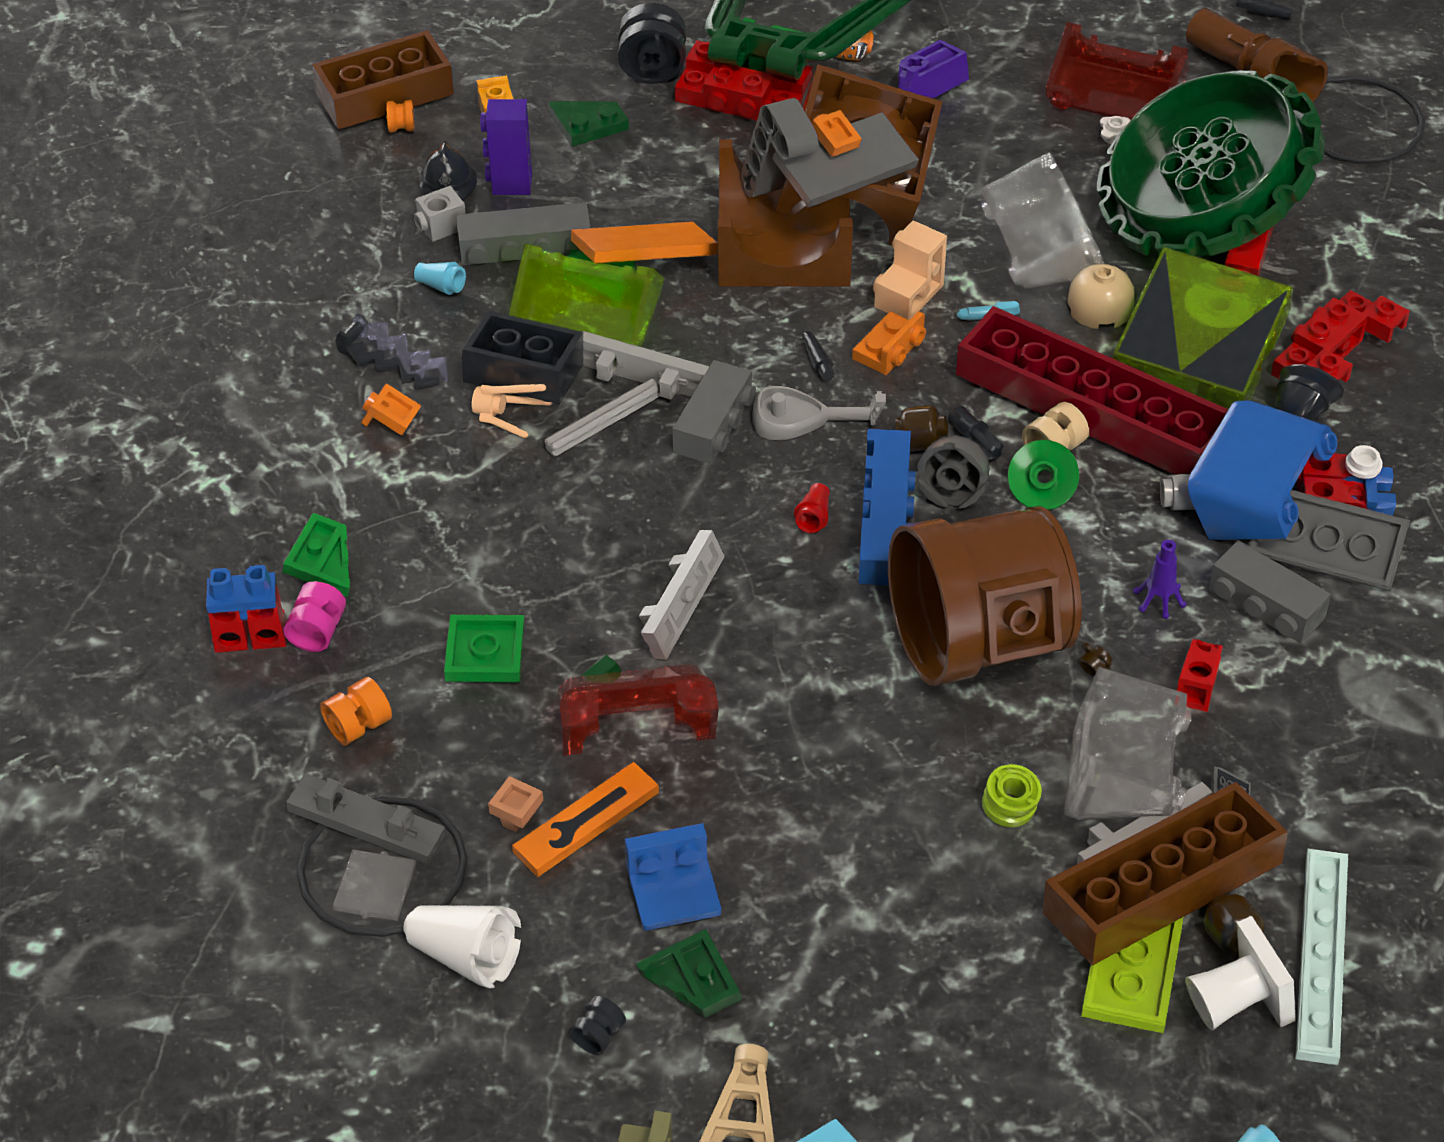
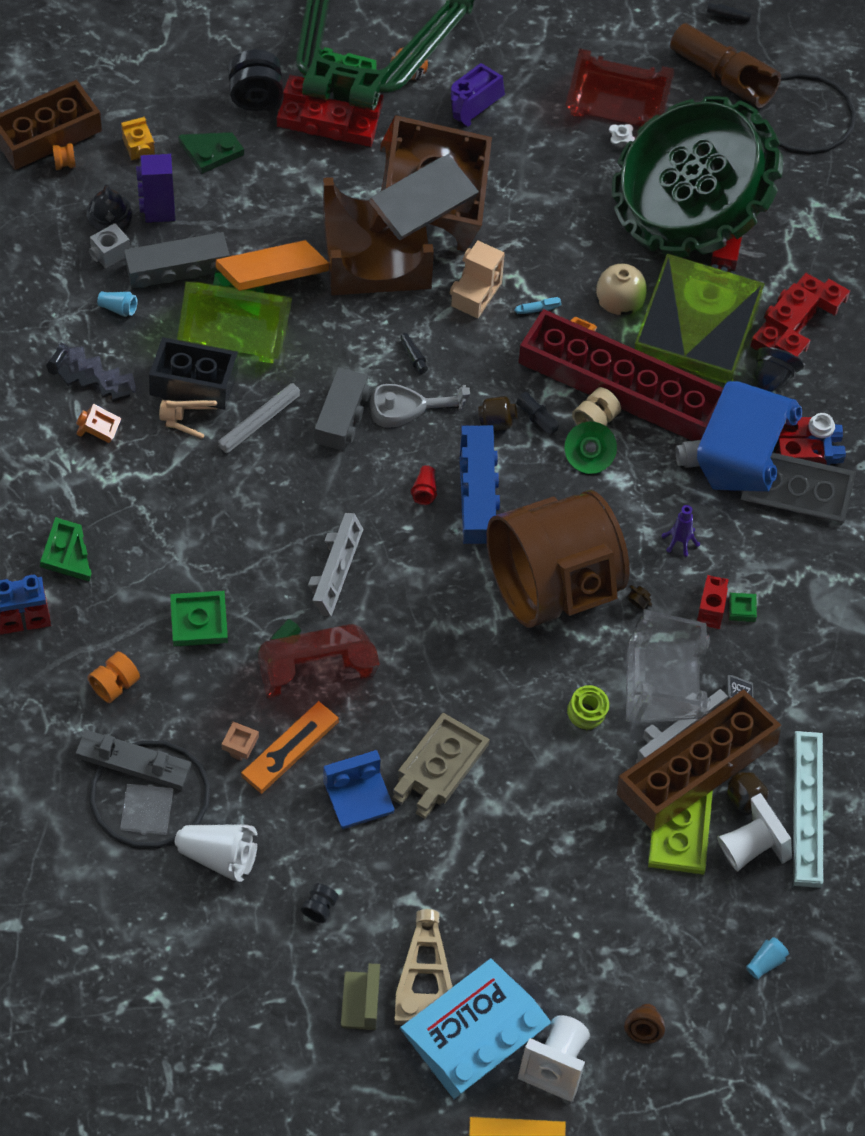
camera: 10 degrees left, 10 degrees up
(314, 616) = (71, 603): dark pink wheel -> none
(640, 365) = (284, 372): light grey hinge -> none
(692, 974) = (380, 859): dark green wing -> none
(781, 129) = (371, 179): dark grey beam -> none
(792, 855) = (439, 763): none -> dark tan tile
(836, 133) = (414, 178): orange bracket -> none
(890, 342) = (466, 338): orange bracket -> none
(953, 472) = (525, 450): dark grey cylinder -> none
(1041, 224) = (573, 230): clear windscreen -> none
(1241, 685) = (742, 607): none -> green tile
(1269, 591) = (758, 532): dark grey brick -> none

